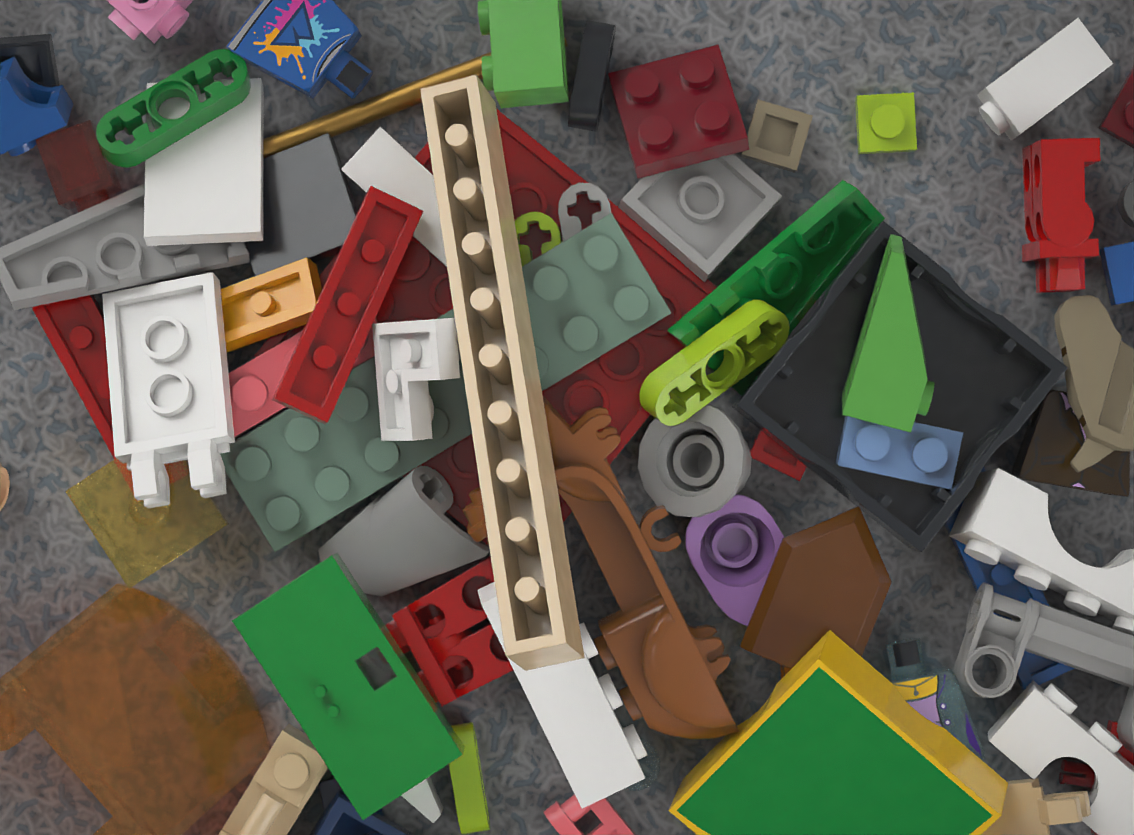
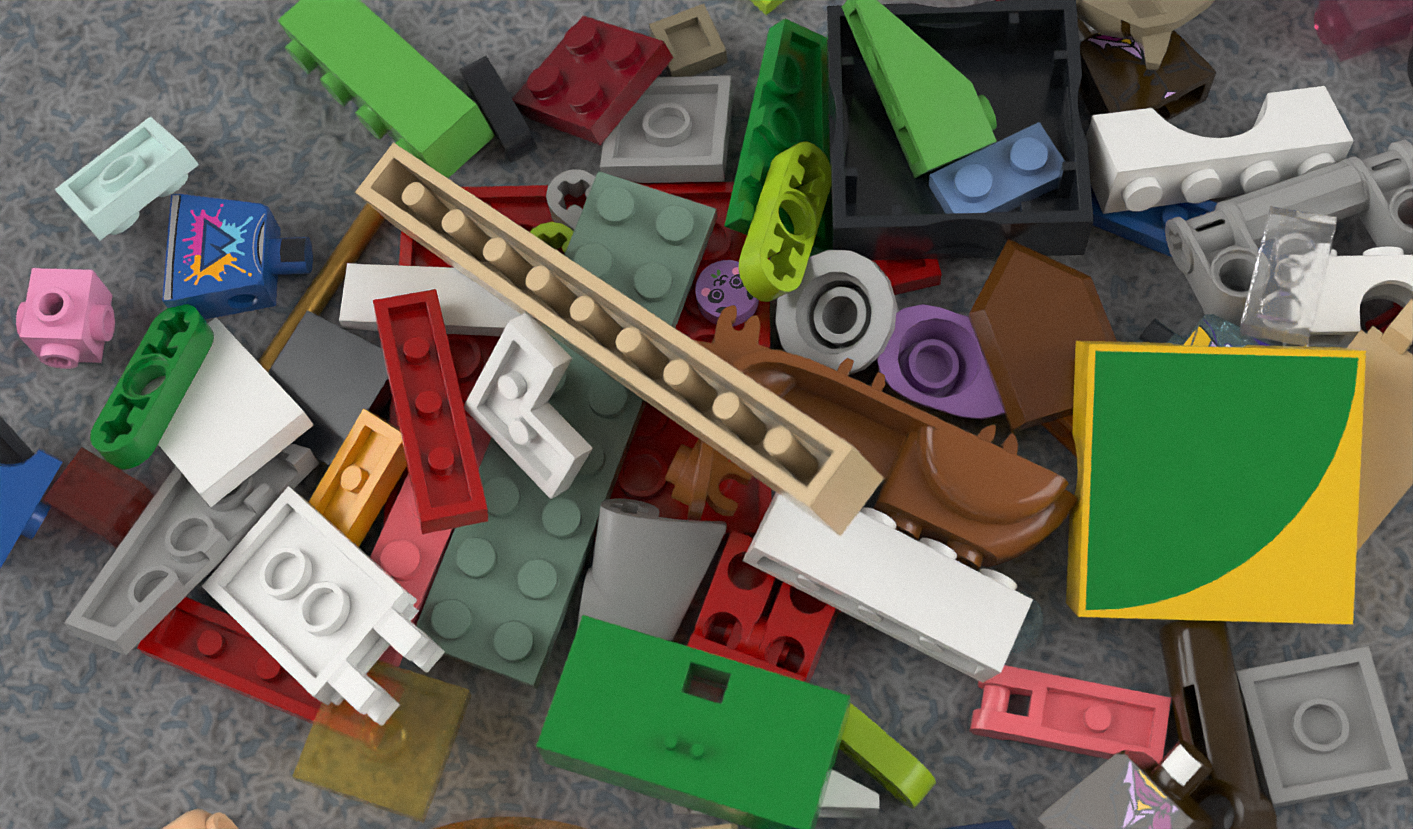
camera: 30 degrees left, 20 degrees down
(628, 370) = (721, 287): none -> medium lavender tile
(1014, 708) = (1288, 276): none -> clear plate

